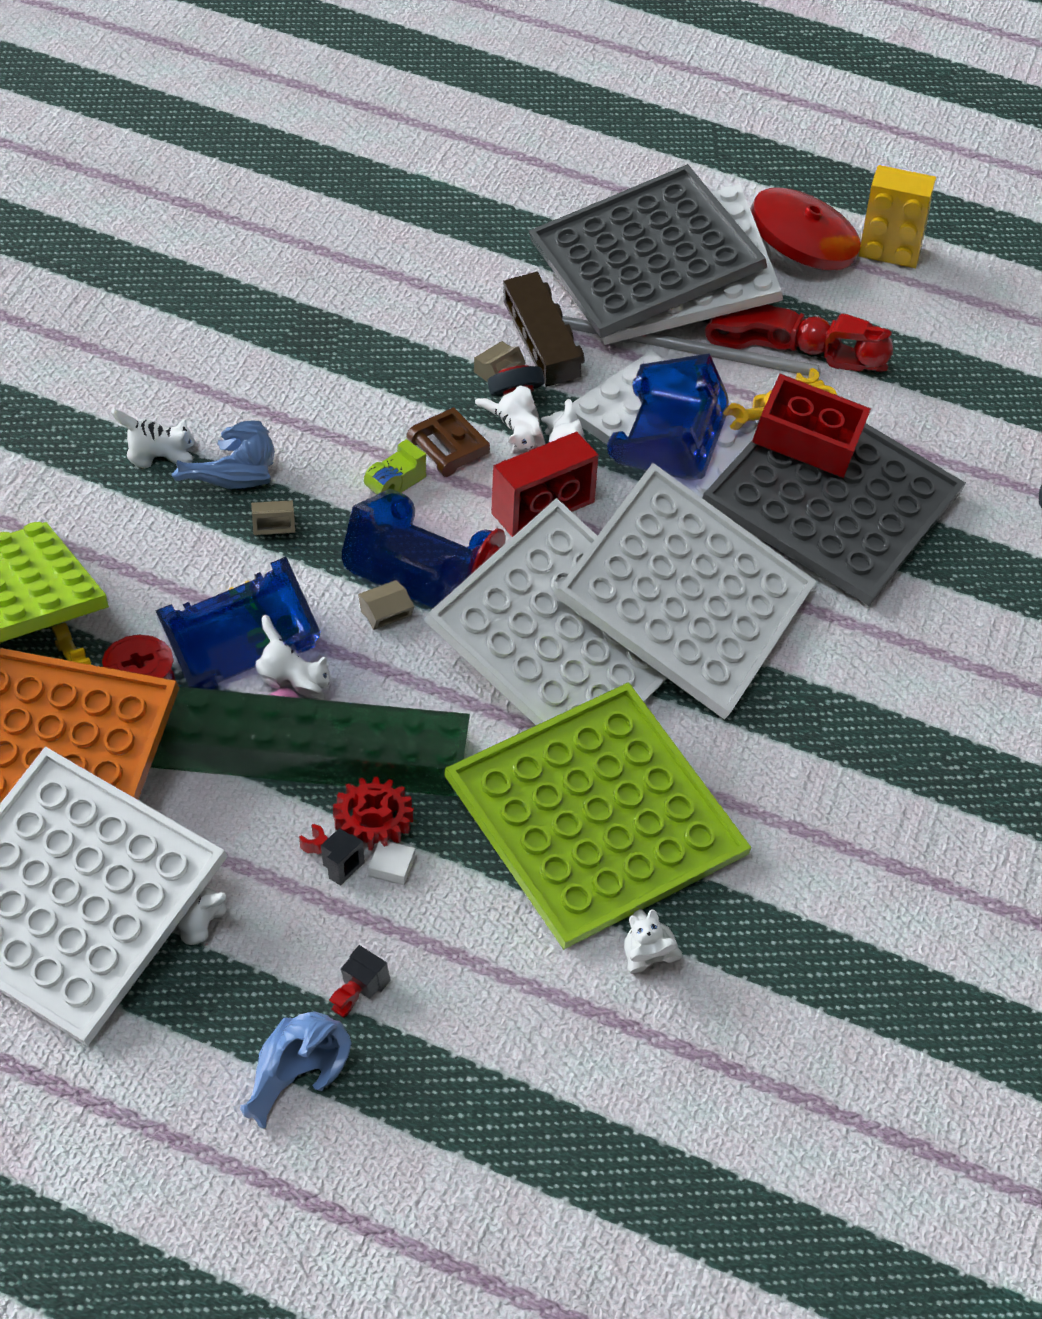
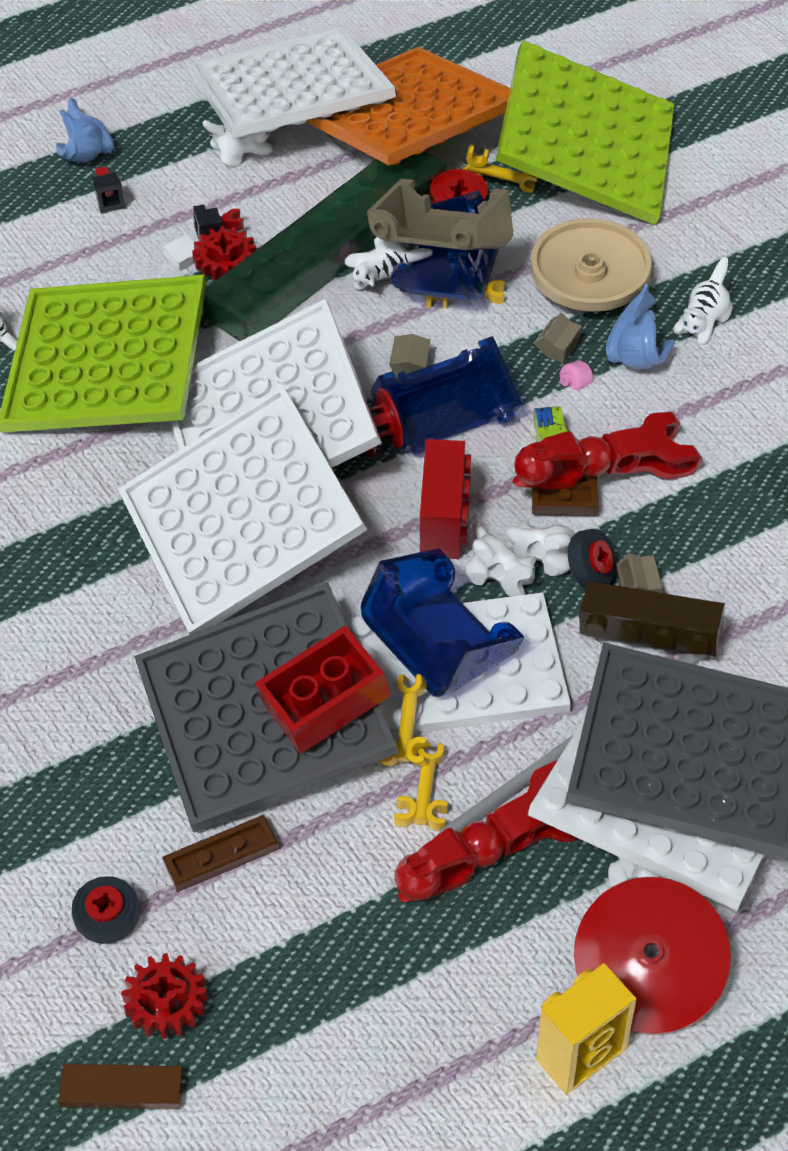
camera: 130 degrees right, 5 degrees up
(166, 526) = (590, 264): none -> tan dish
(244, 591) = (408, 218): none -> dark tan windscreen
(304, 496) = (576, 375): none -> bright pink piece
(388, 407) = (622, 452): none -> red piece
(978, 476) = (220, 853): none -> reddish brown tile

